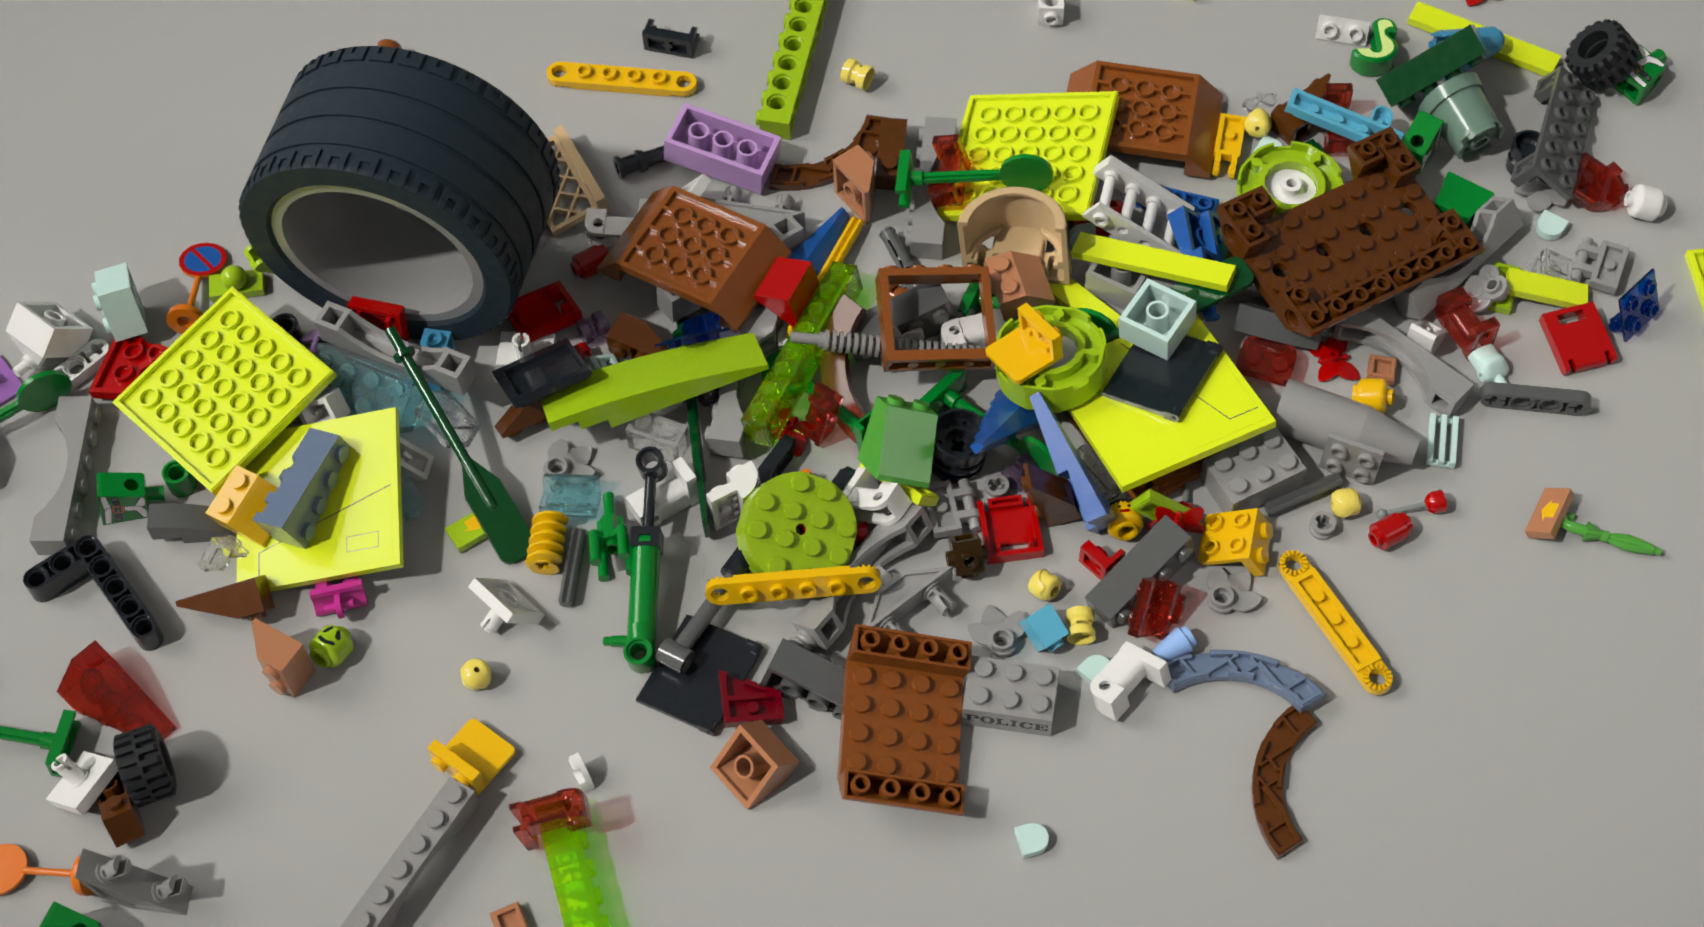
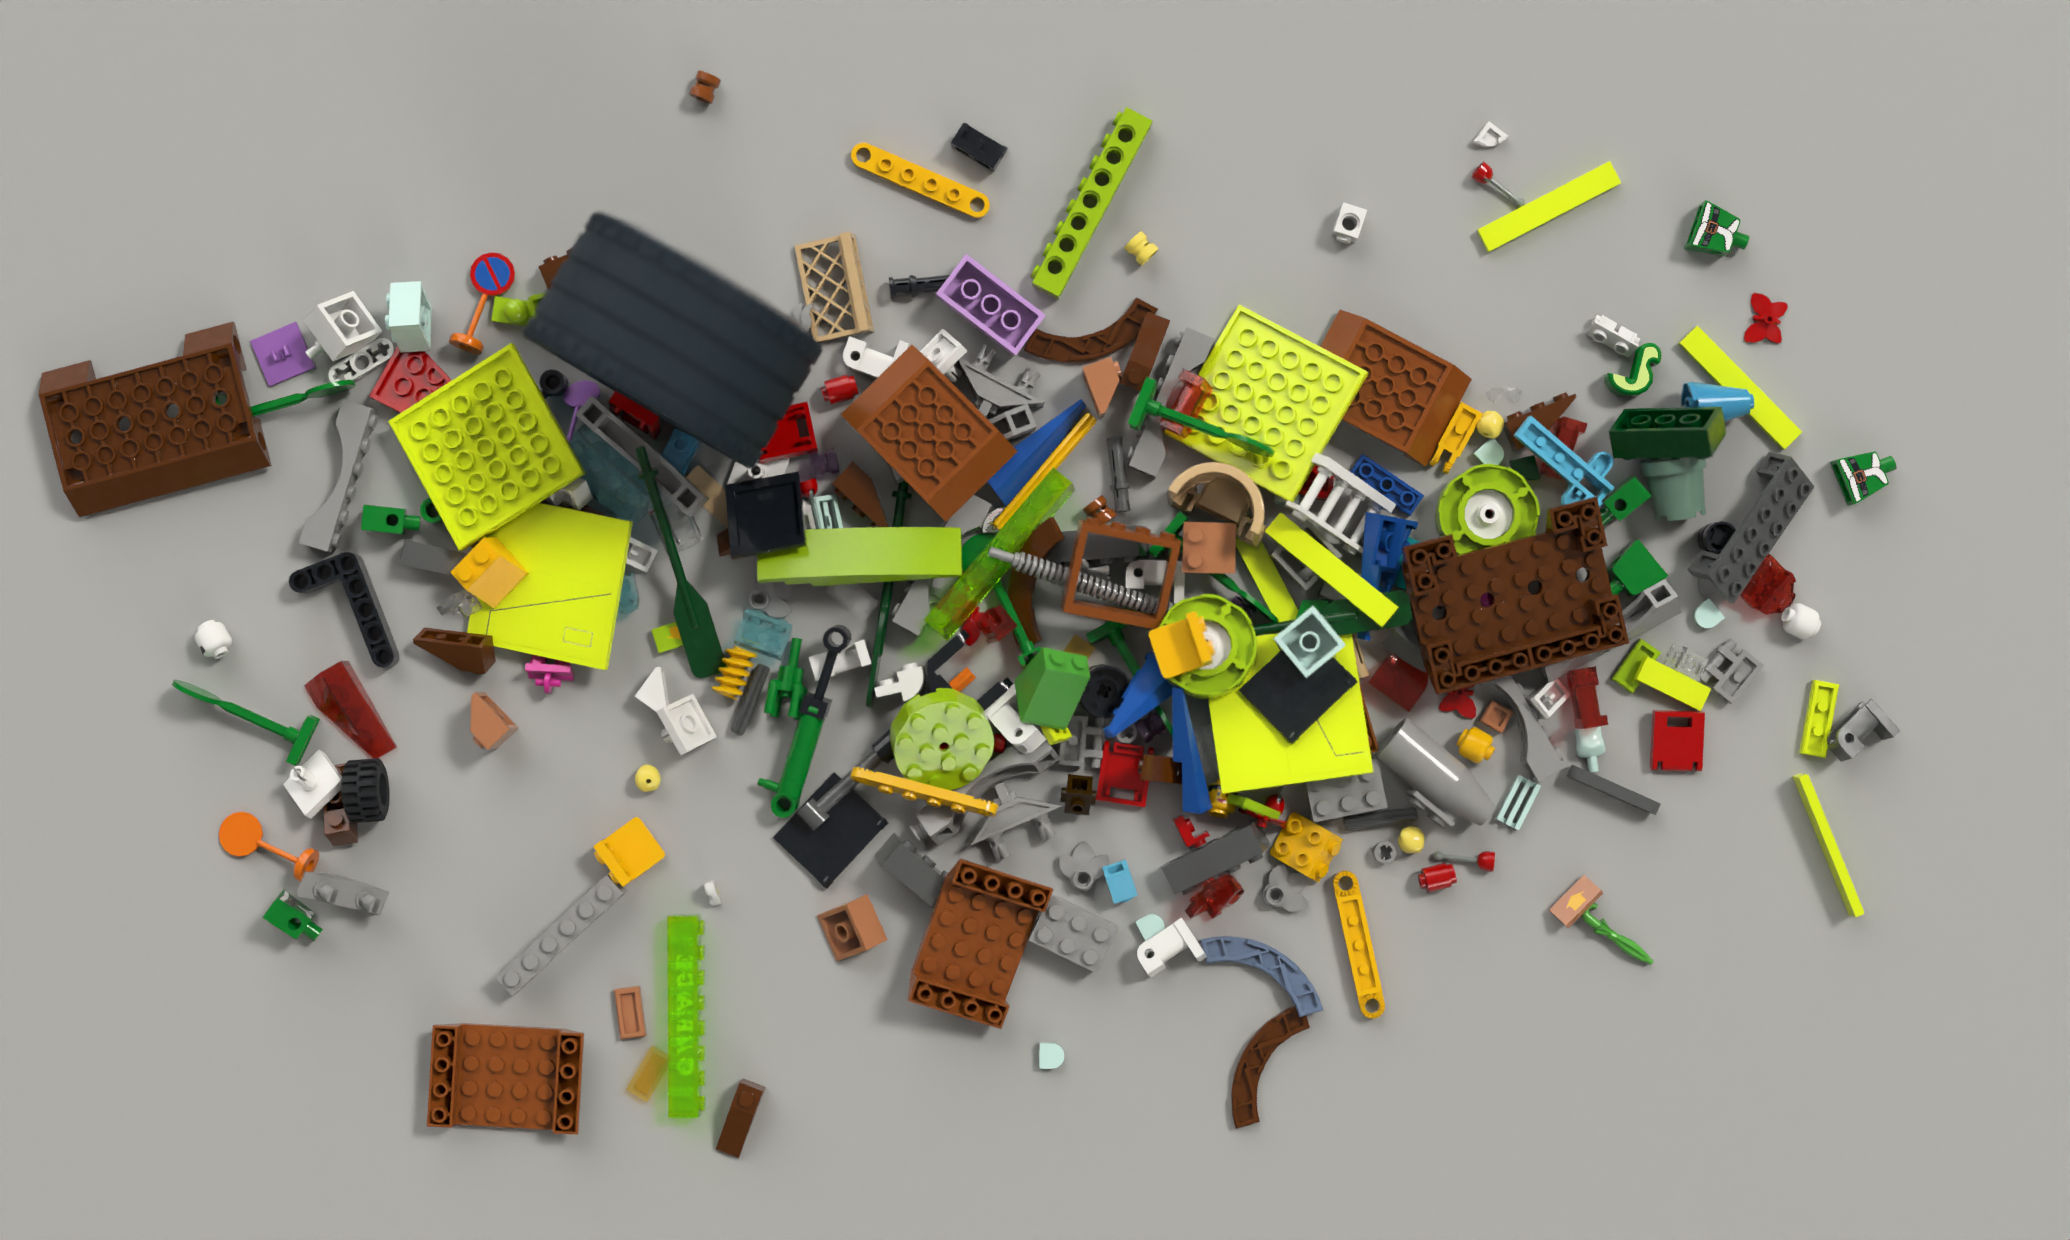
camera: 15 degrees right, 30 degrees up
(304, 489) = (538, 577): wedge -> none
(330, 646) = (534, 716): lime head -> none
(456, 586) = (654, 690): none -> white slope
(485, 396) = (717, 496): none -> tan sticker
(551, 812) = (684, 938): clear red piece -> none
(697, 330) = (908, 515): clear blue hinge -> none
(749, 702) = (861, 872): dark red wing -> none
(788, 288) = (1001, 493): red slope -> none
(1044, 585) = (1134, 839): light yellow piece -> none
(1080, 625) = (1153, 880): light yellow wheel -> none
(1175, 644) = (1221, 926): light blue cone -> none
(1486, 287) = (1614, 666): light grey plate -> none
(1602, 55) = (1845, 469): black tyre -> none
(1636, 307) = (1750, 728): clear blue hinge -> none

